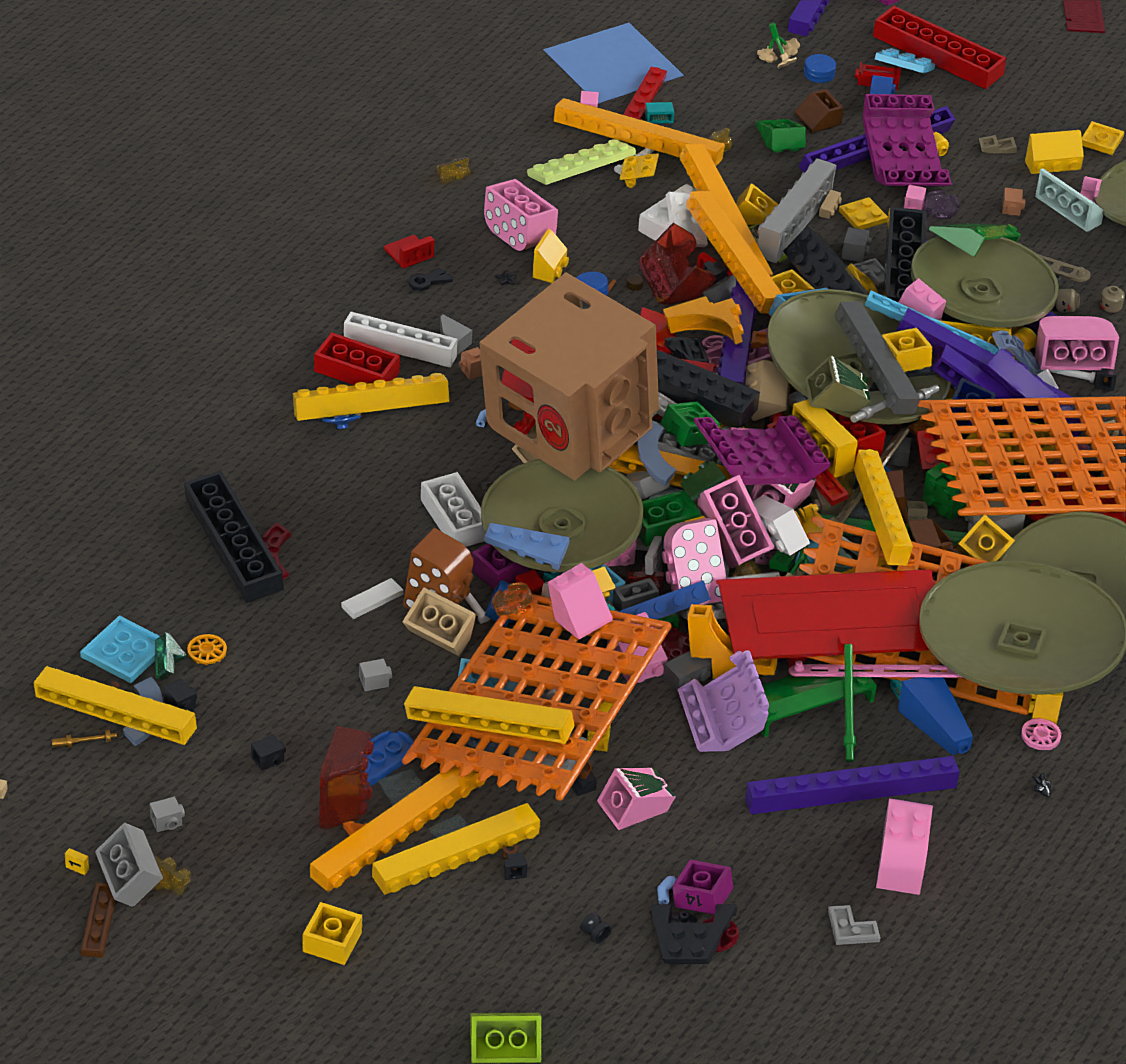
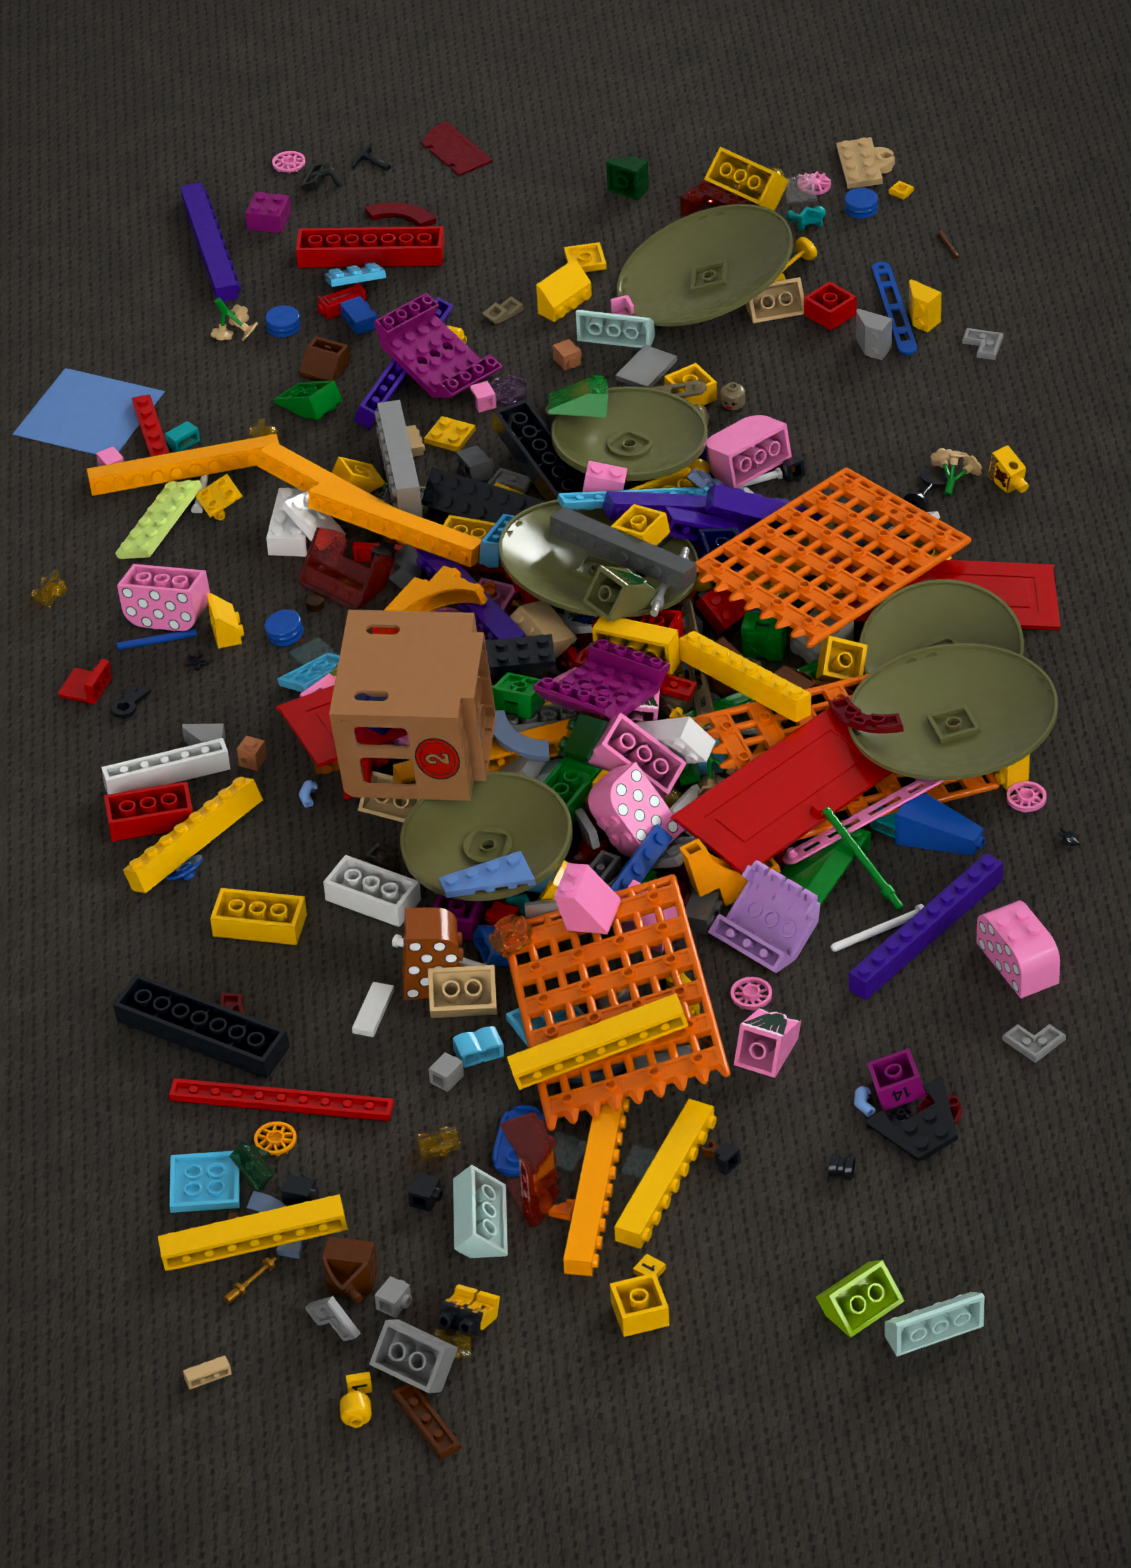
camera: 30 degrees left, 0 degrees up
(56, 878) = (355, 1409): none -> yellow head
(104, 800) = (329, 1311): none -> light grey tile
(152, 772) = (350, 1267): none -> reddish brown piece
(203, 858) = (468, 1310): none -> hips
(239, 624) = (281, 1099): none -> red plate
(287, 795) = (479, 1214): none -> light aqua slope
(315, 722) = (438, 1142): none -> clear yellow hips
(355, 482) = (258, 916): none -> yellow brick
(373, 913) = (649, 1265): none -> yellow tile
(417, 670) = (478, 1046): none -> medium azure brick
(493, 246) = (156, 639): none -> blue bar
(665, 755) = (751, 993): none -> bright pink wheel
(795, 763) = (875, 930): none -> white bar
(940, 591) = (852, 716): none -> dark red tile
(1000, 38) = (391, 209): none -> dark red tile
(1068, 243) = (646, 367): none -> light grey tile
(1094, 265) = (691, 373): none -> yellow brick

